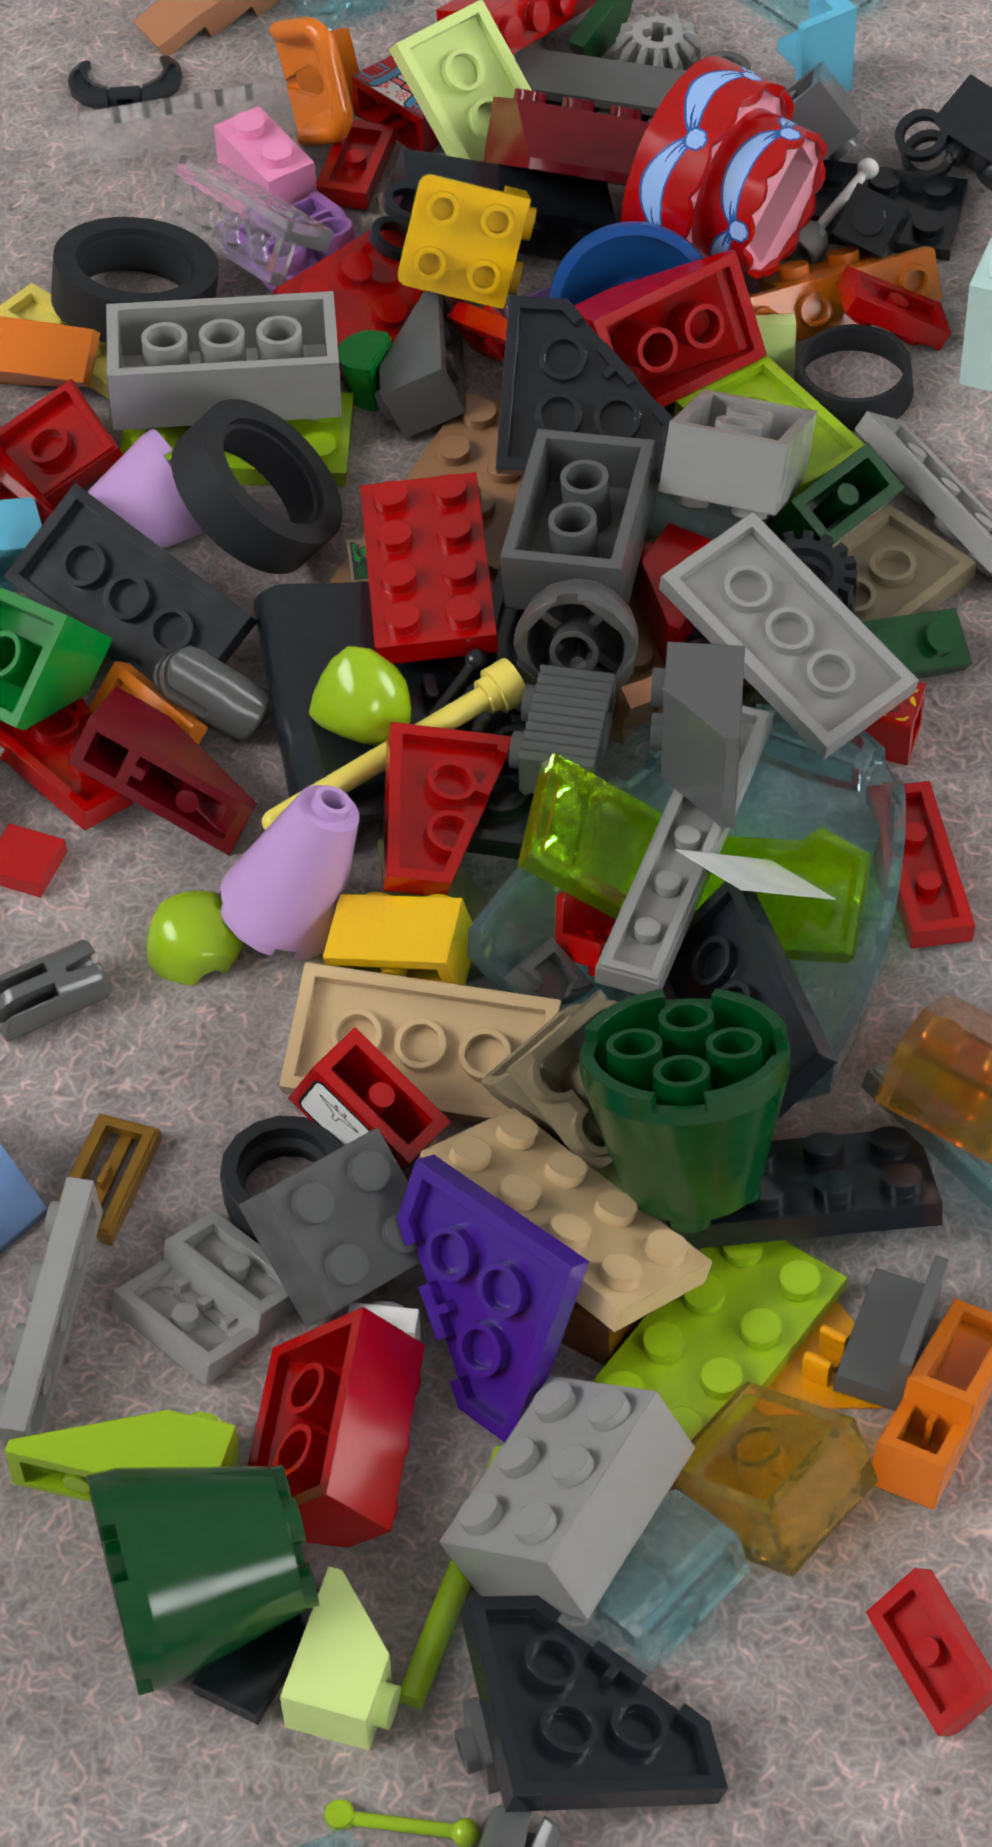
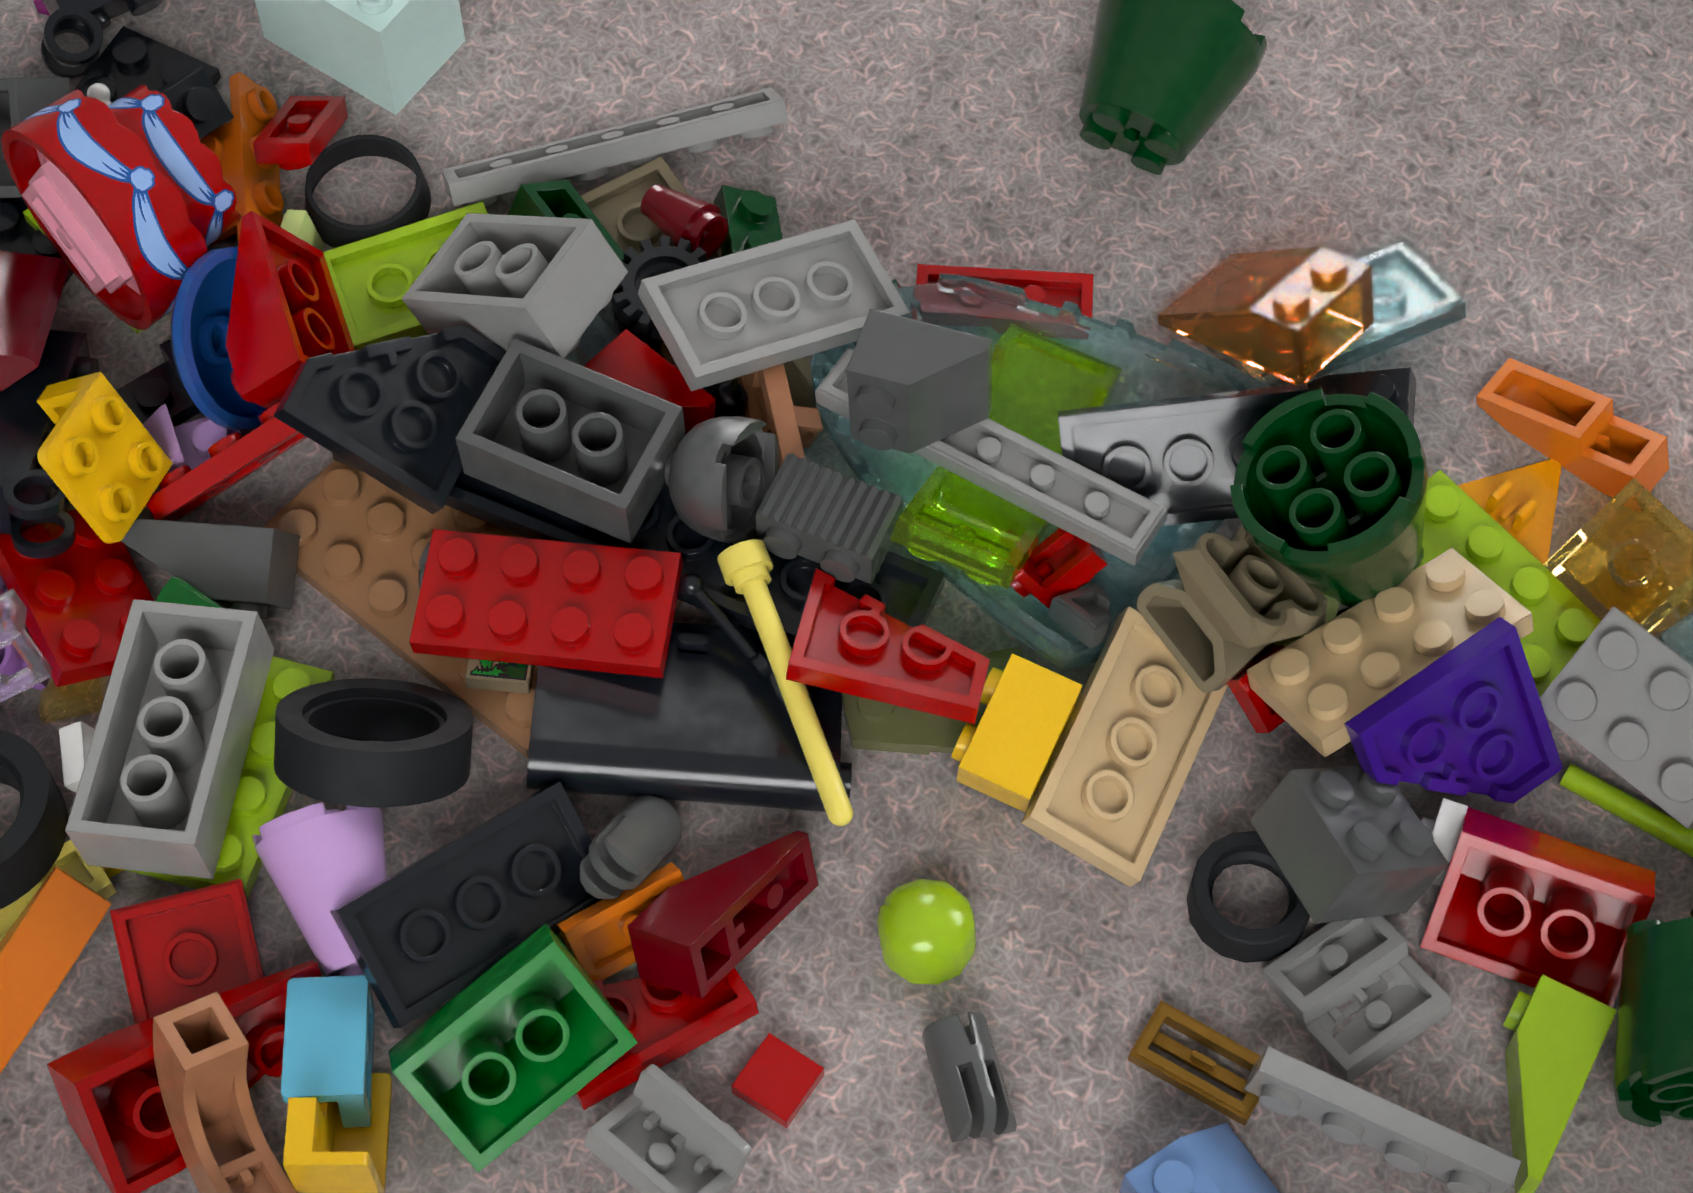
camera: 80 degrees left, 10 degrees up
(293, 874) = (920, 805): lavender cone -> none
(360, 696) = (731, 692): lime piece -> none
(362, 1090) = (1211, 794): red brick -> none
(755, 874) = (1051, 404): white sticker -> none
(889, 1335) = (1508, 440): dark grey panel -> none
(892, 582) = (685, 218): none -> dark red cone

